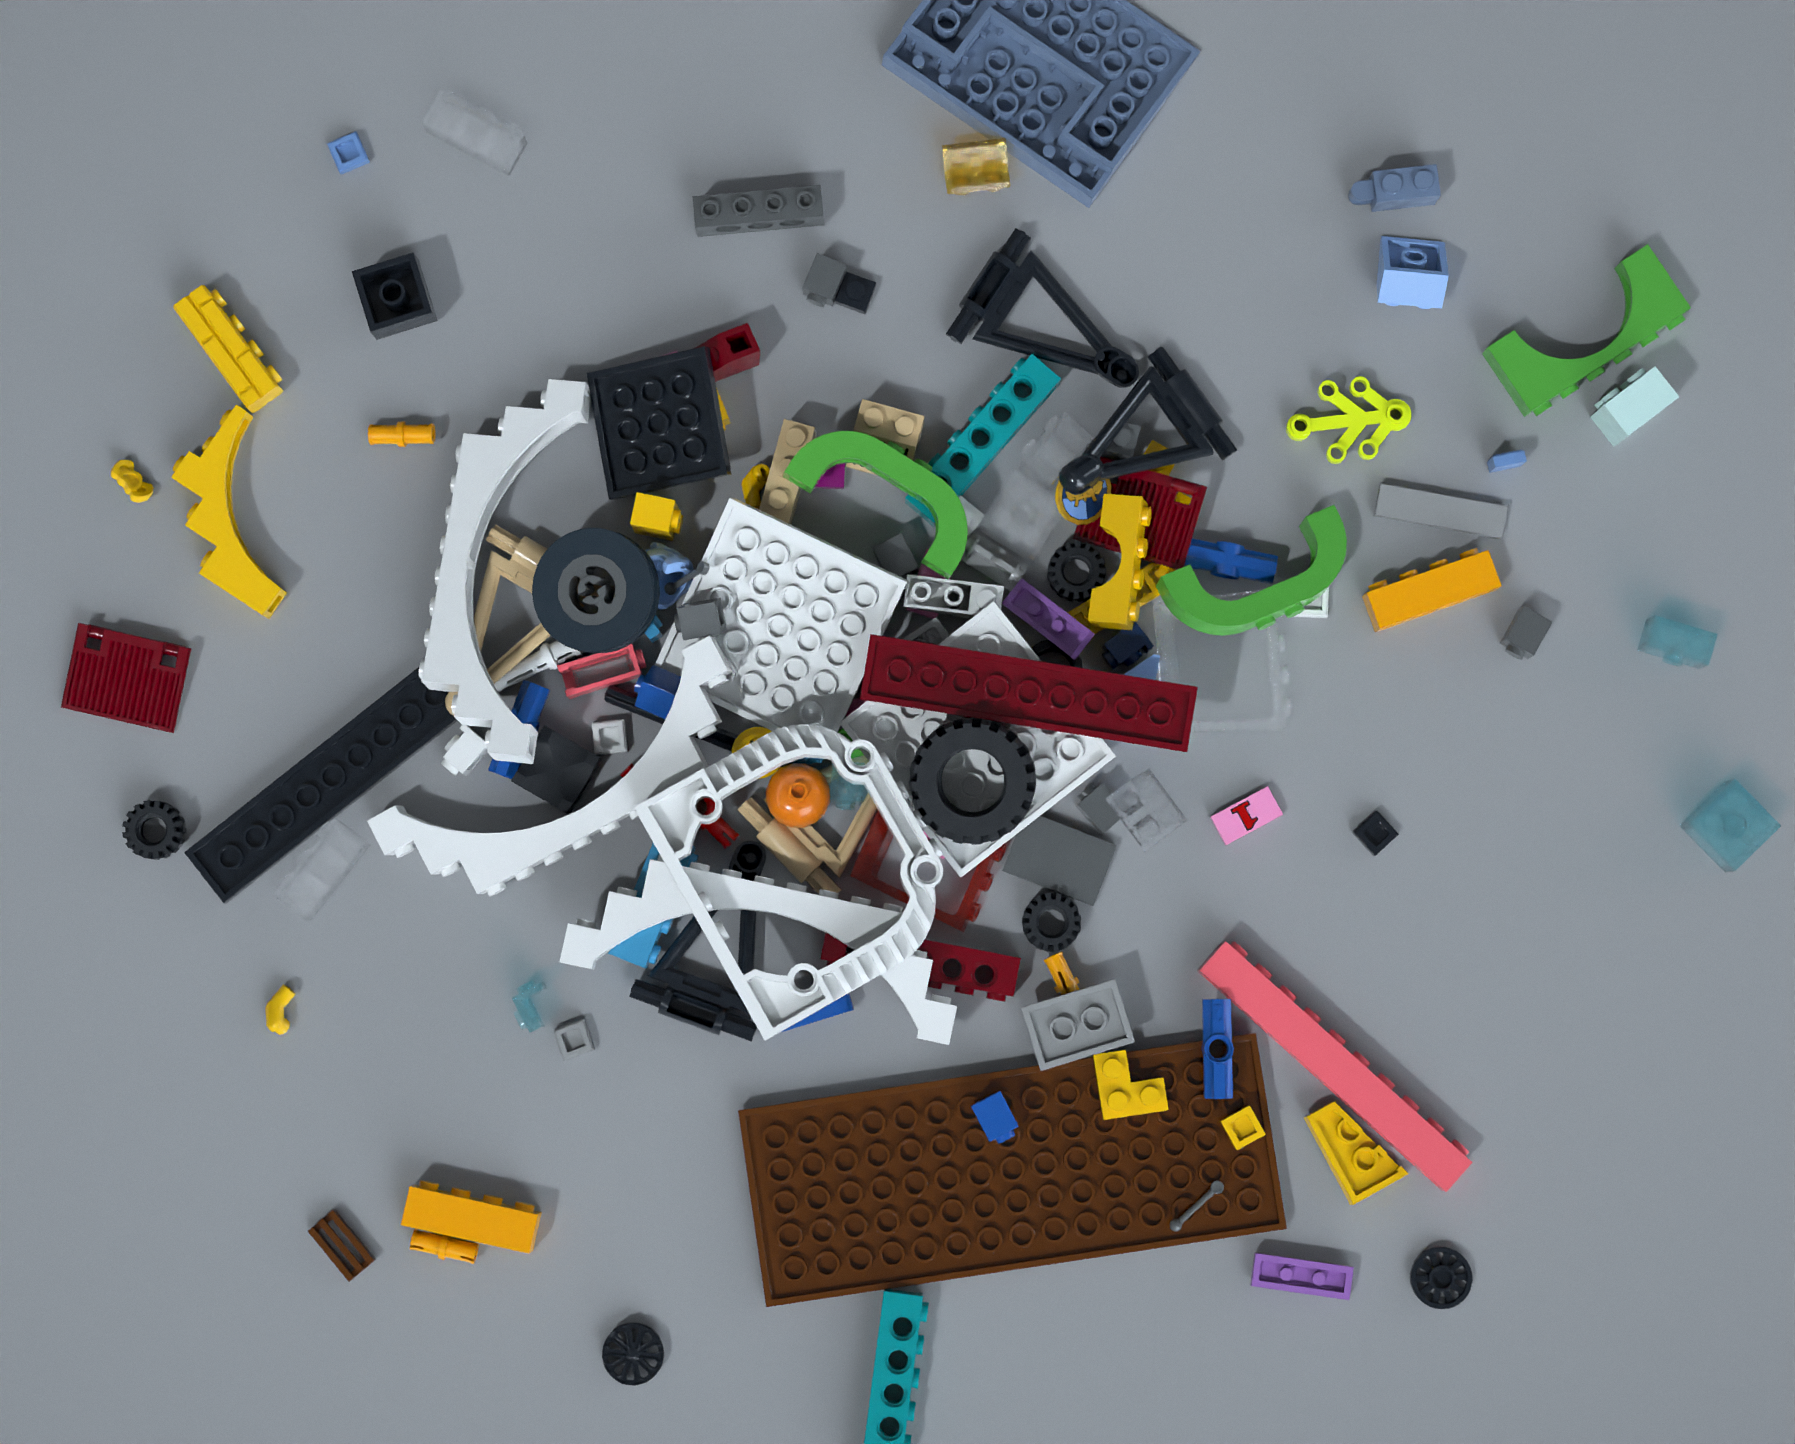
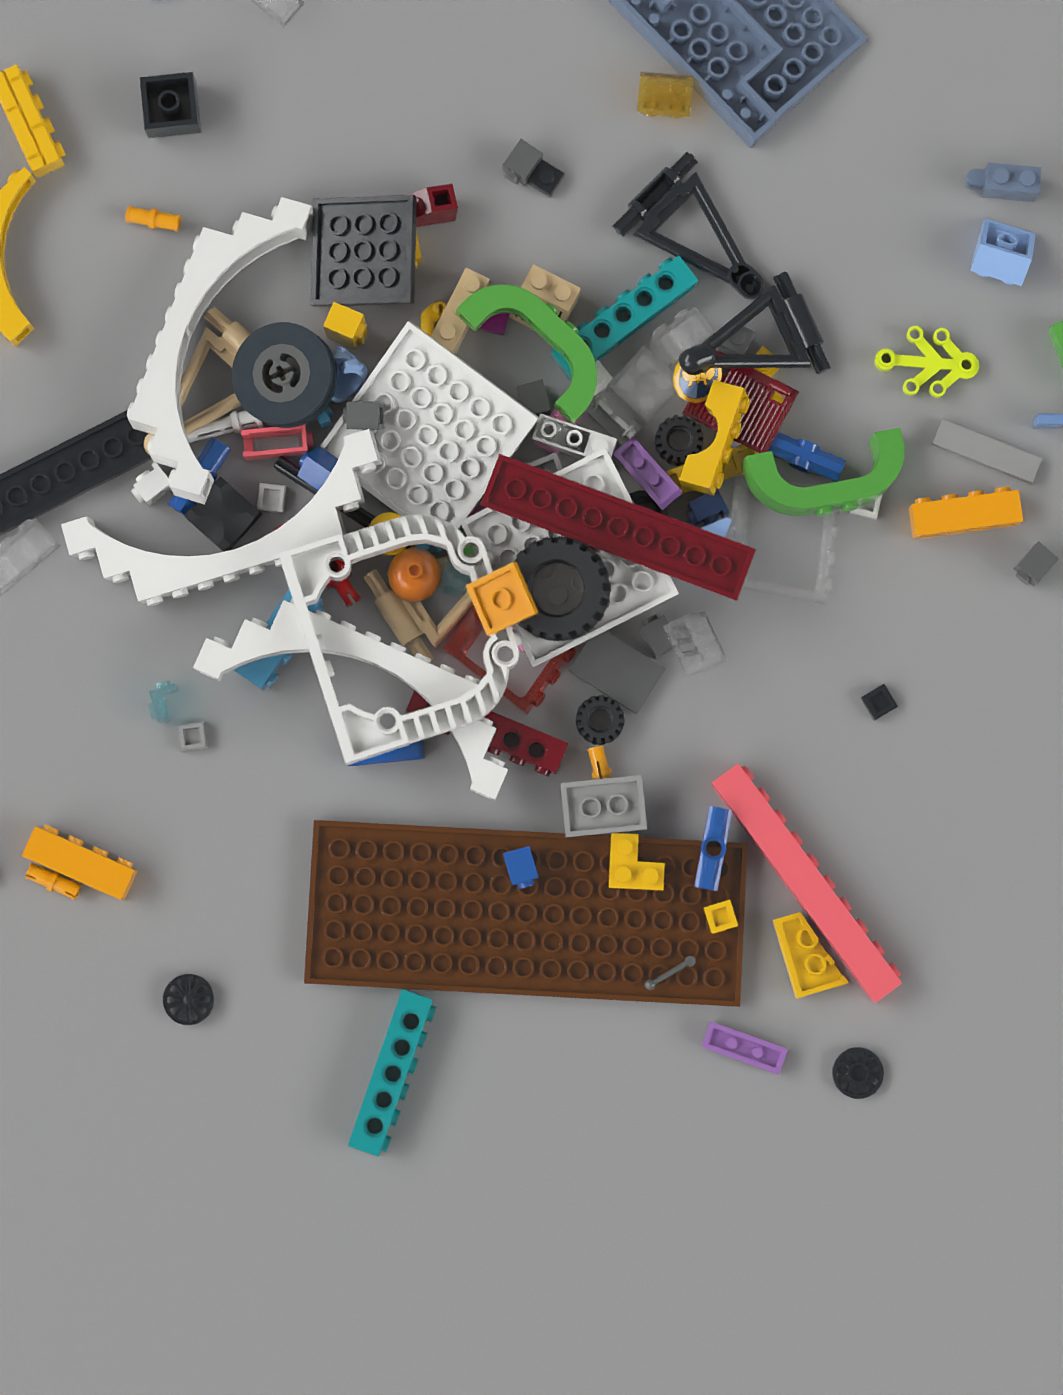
camera: 10 degrees right, 0 degrees up
(697, 999) = (296, 722): black piece -> none
(702, 568) = (374, 374): dark grey hinge -> none
(758, 210) = (480, 95): dark grey brick -> none
(910, 808) = (502, 599): none -> light orange plate
(1246, 815) = (776, 666): bright pink tile -> none

